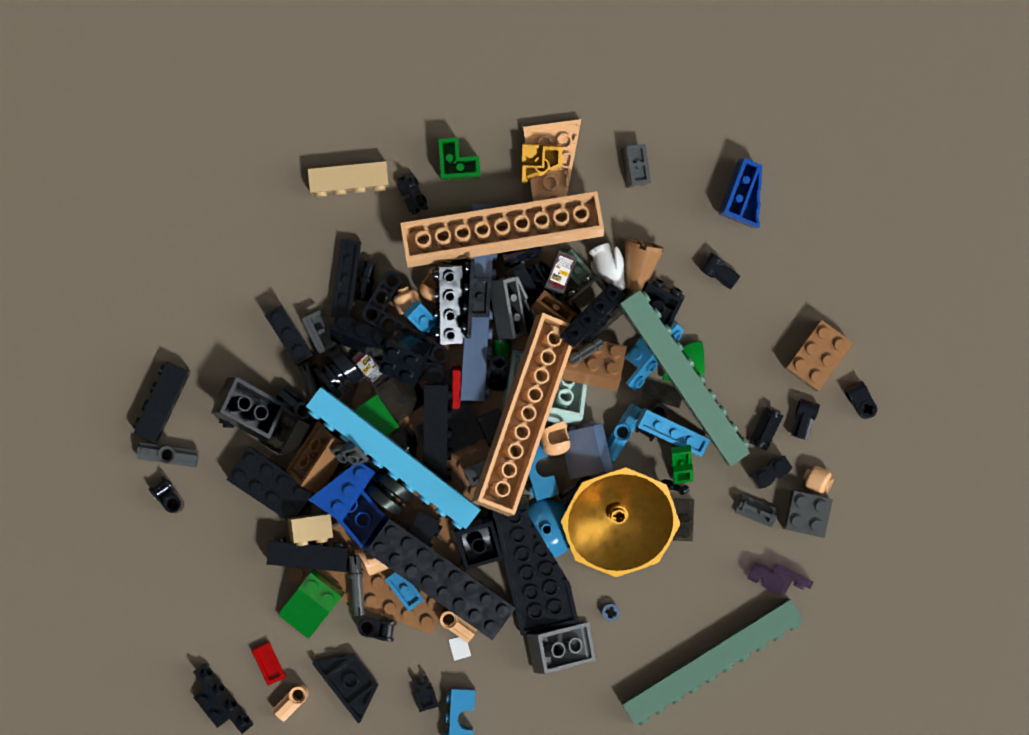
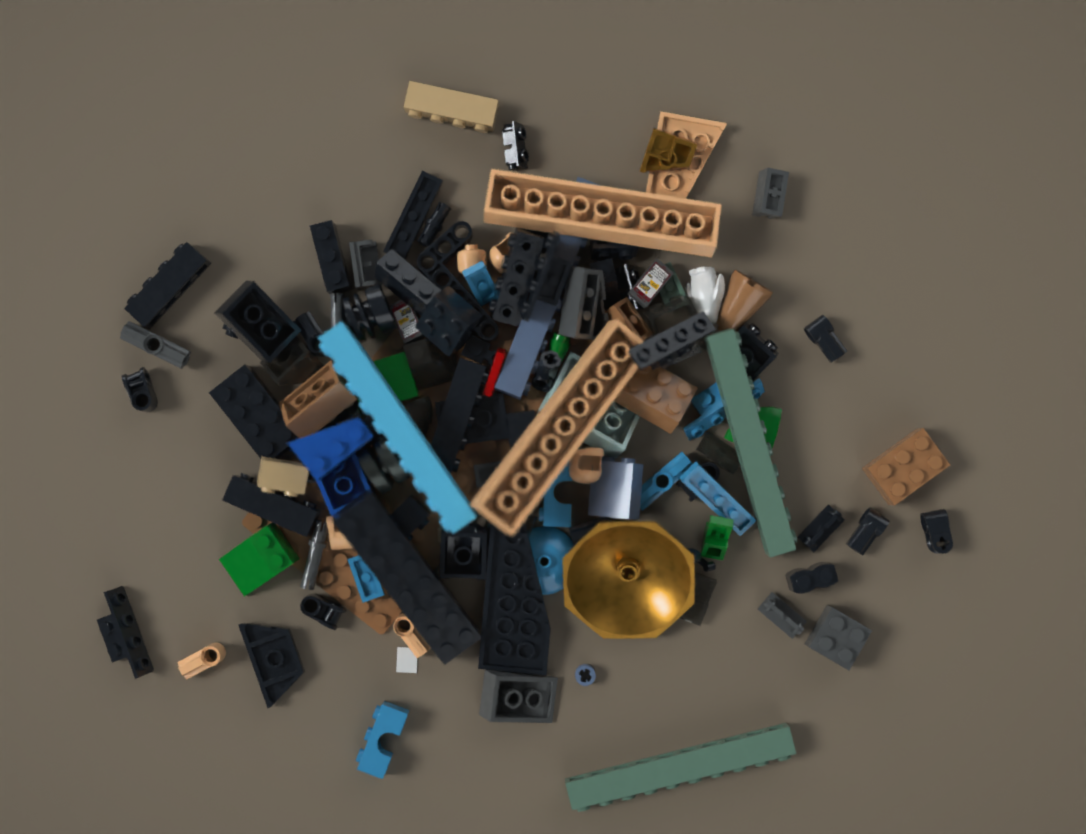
camera: 20 degrees right, 0 degrees up
(268, 663) = (191, 609): red tile -> none
(349, 453) = (349, 406): dark grey slope -> none
(426, 696) = (351, 703): black plate -> none
(456, 167) = (571, 130): green brick -> none
(585, 351) = (651, 377): dark grey axle -> none
(743, 194) = (879, 262): blue wedge -> none
(778, 579) = (781, 698): clear purple plate -> none
(818, 479) = (861, 603): light nougat head -> none

